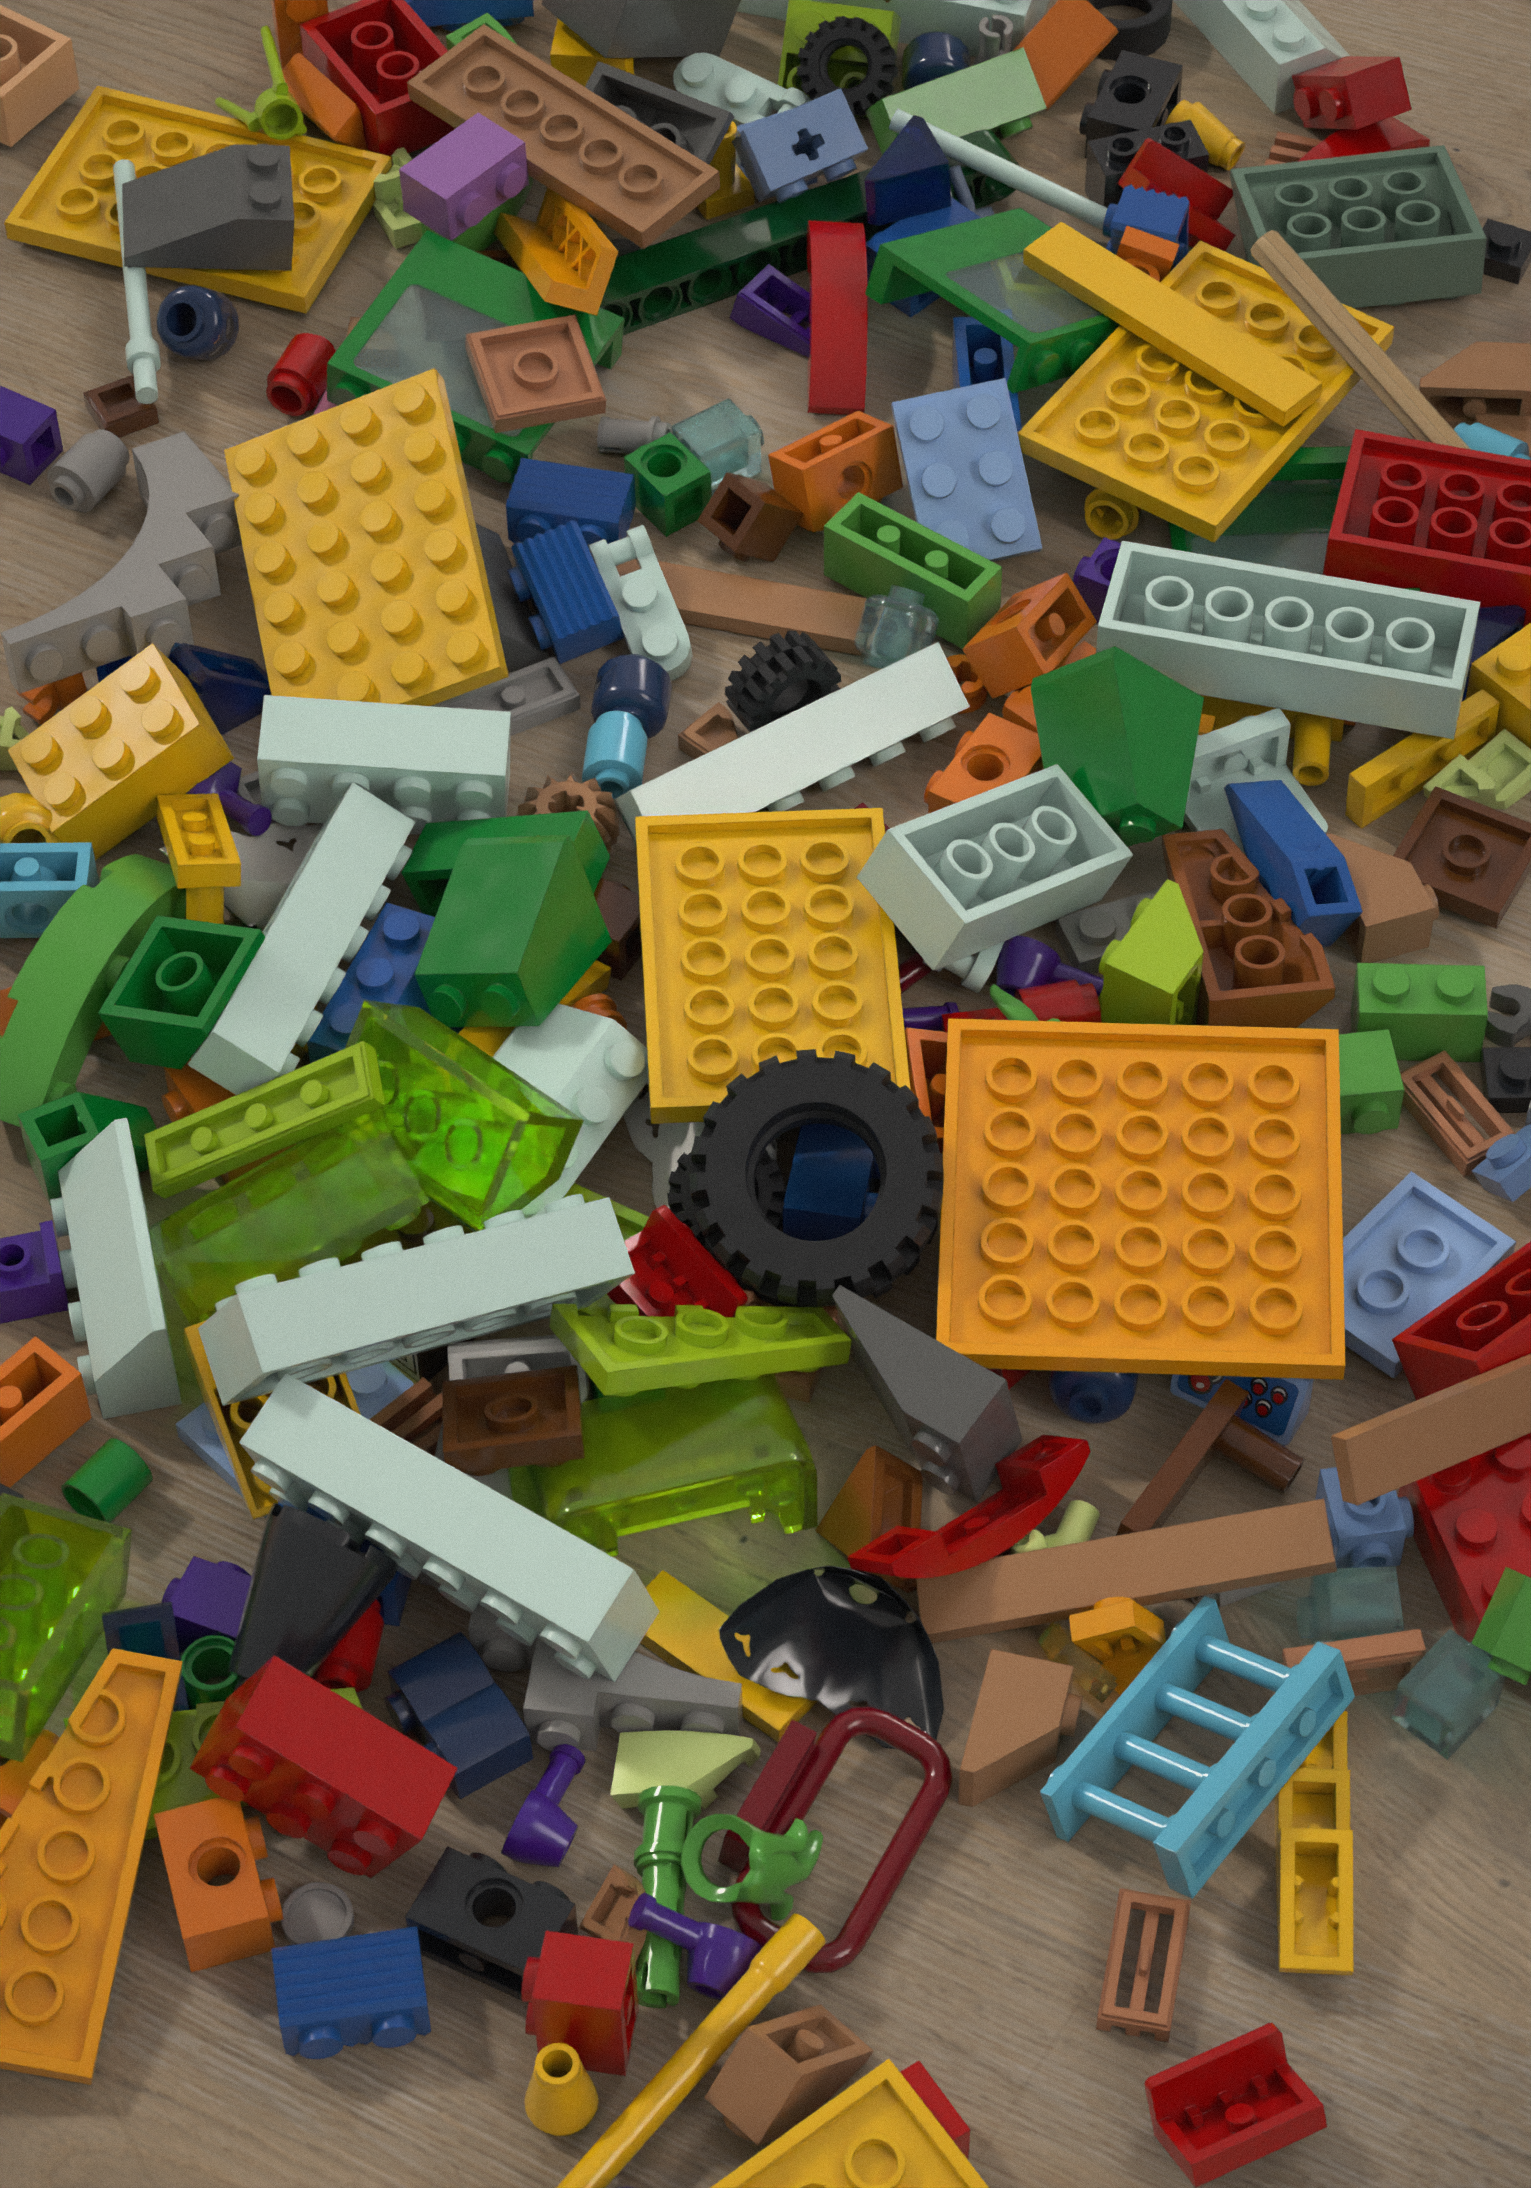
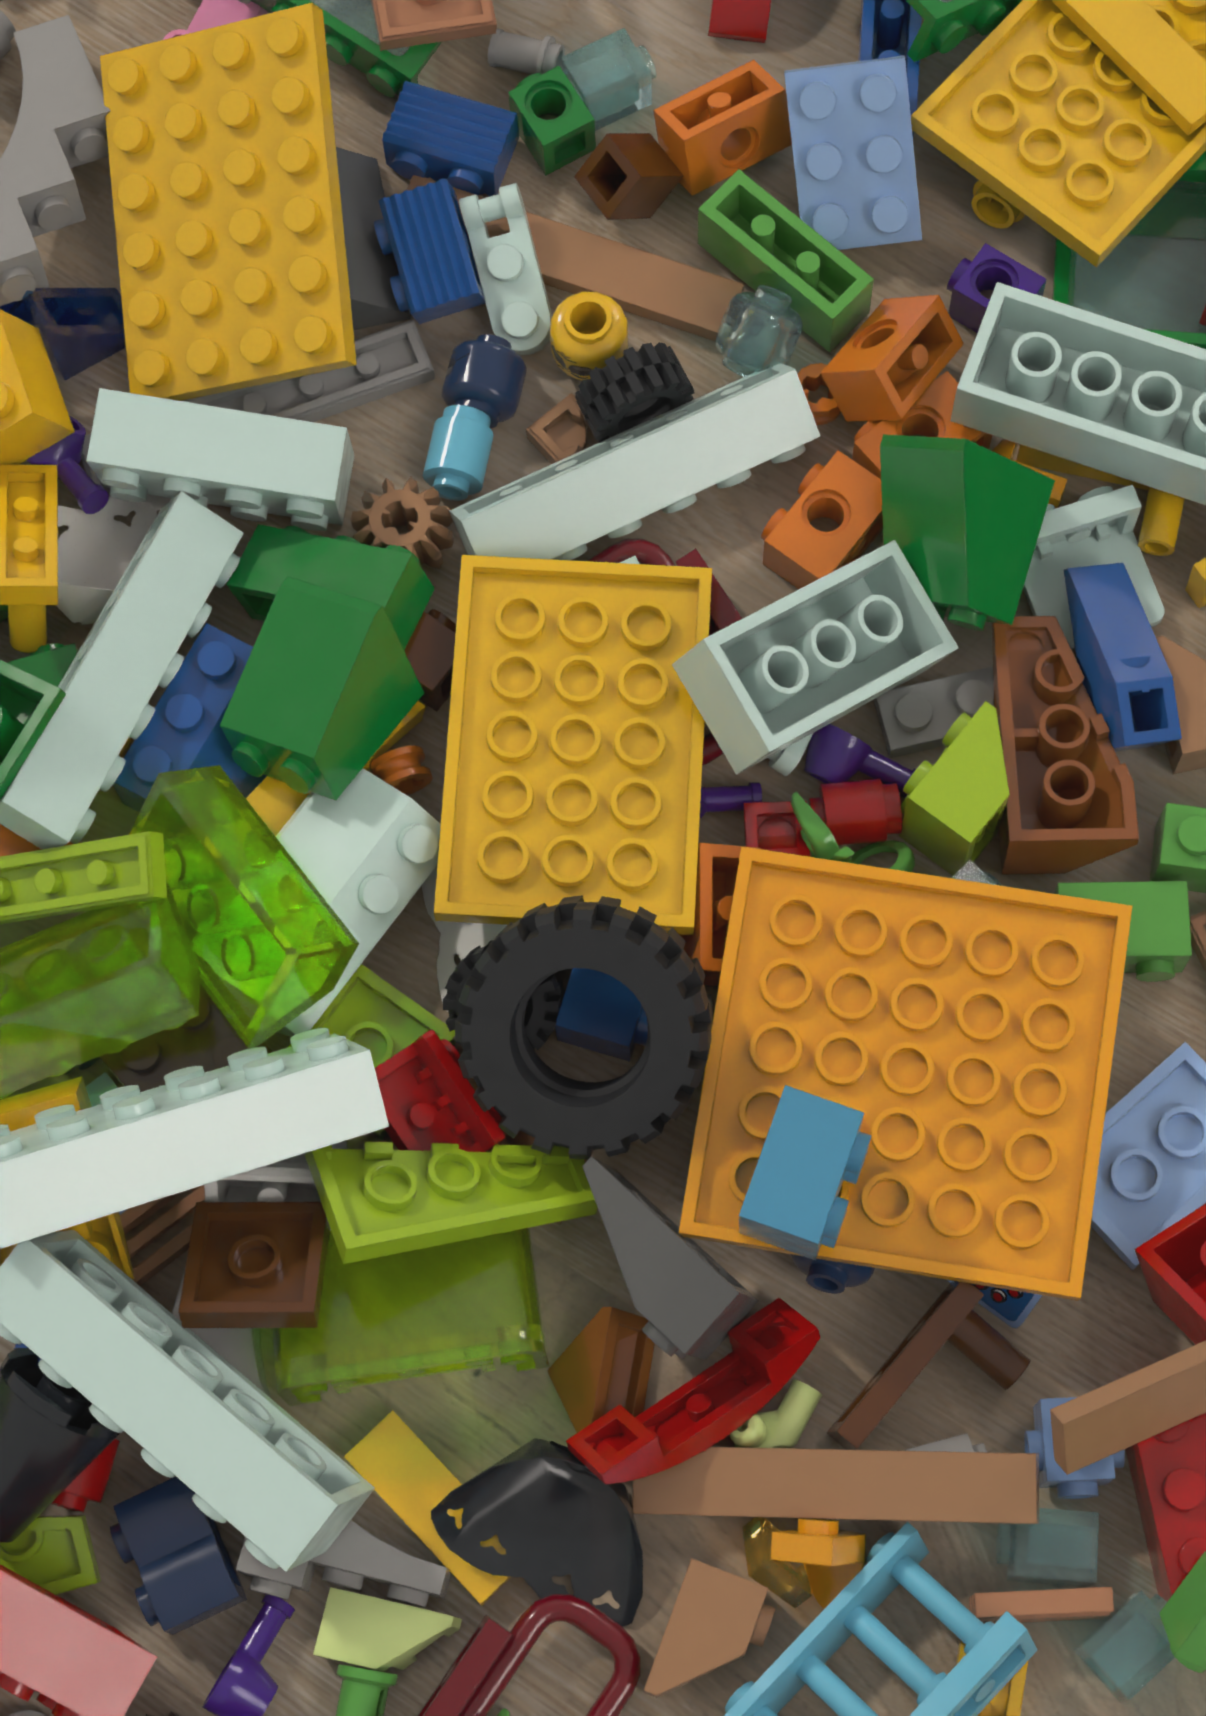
camera: 10 degrees right, 20 degrees up
(722, 640) = (587, 332): none -> yellow head
(1055, 1262) = (801, 1172): none -> dark azure brick

